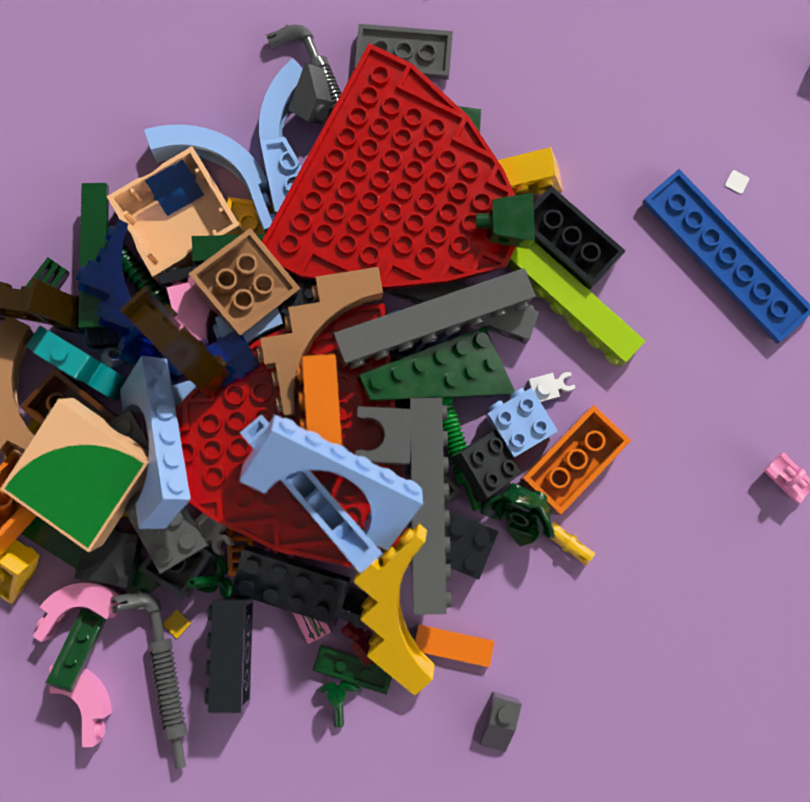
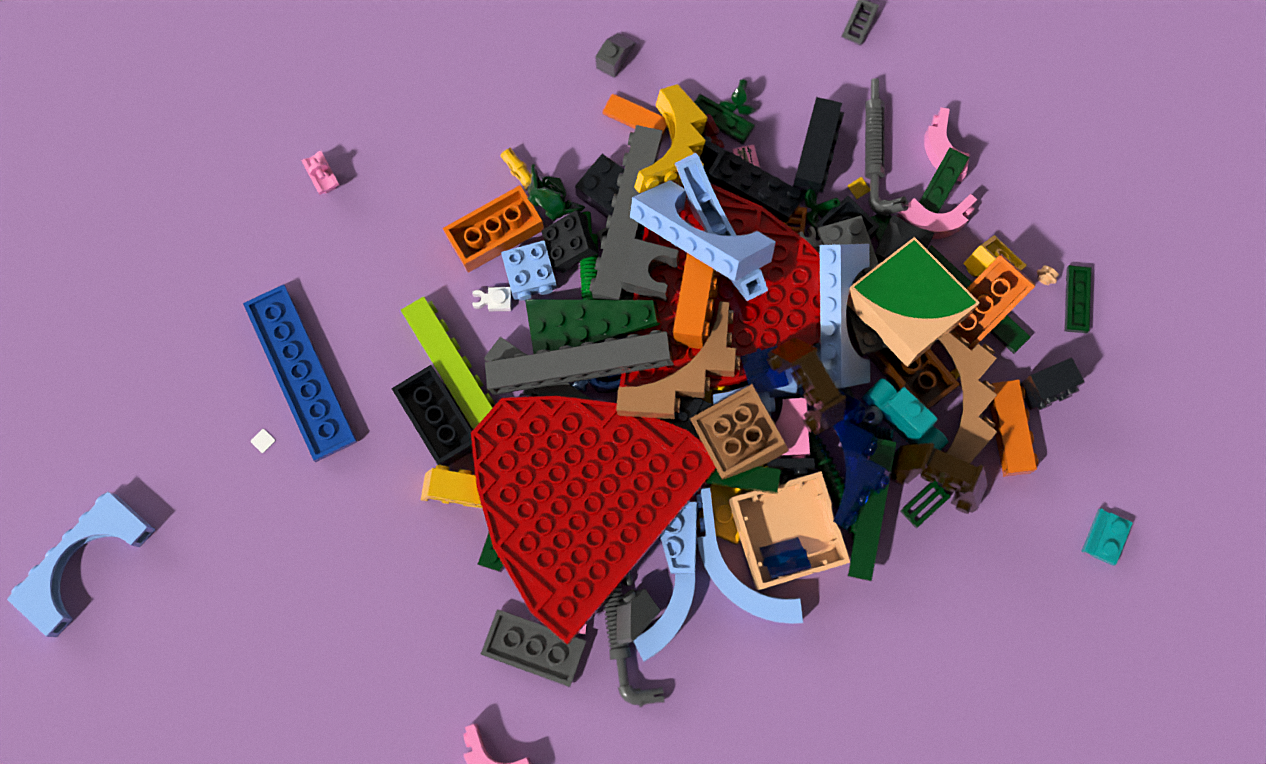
camera: 160 degrees left, 5 degrees down
(509, 221) = (487, 431): dark green torso -> none

